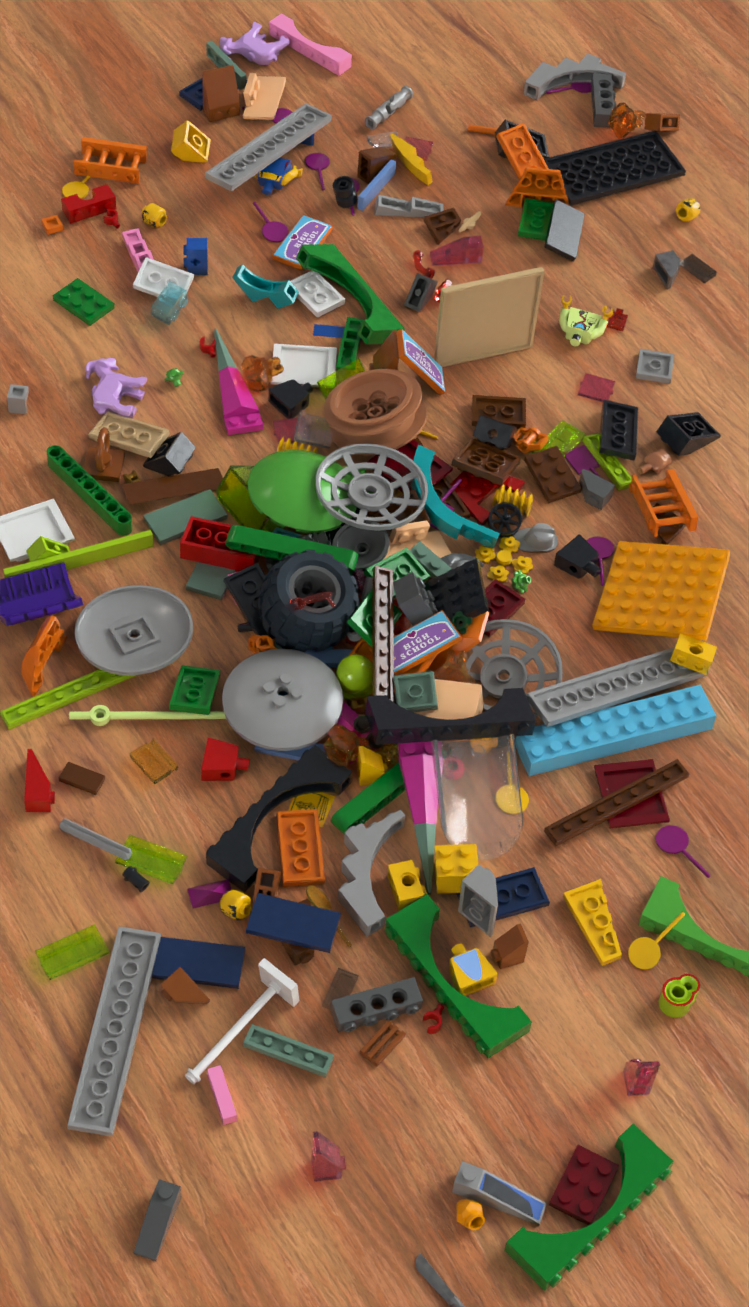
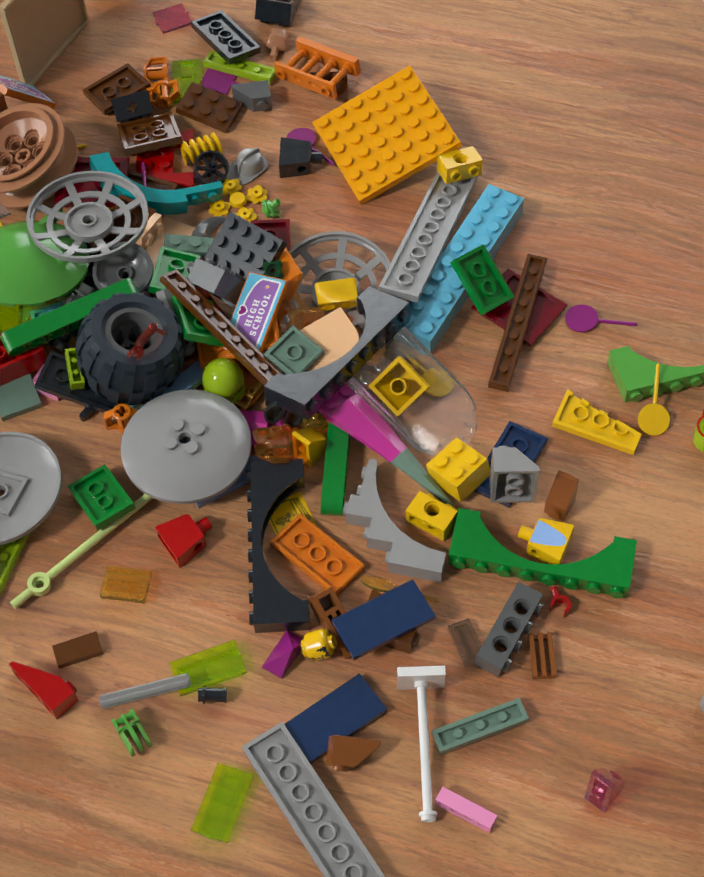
camera: 35 degrees left, 5 degrees up
(60, 857) = (130, 730): none -> bright green arm
(254, 594) = (75, 377): none -> lime piece
(474, 776) = (399, 386): none -> yellow slope
(495, 676) = (337, 294): none -> yellow piece
(540, 420) = (156, 73): none -> orange piece
(616, 749) = (482, 279): none -> green plate

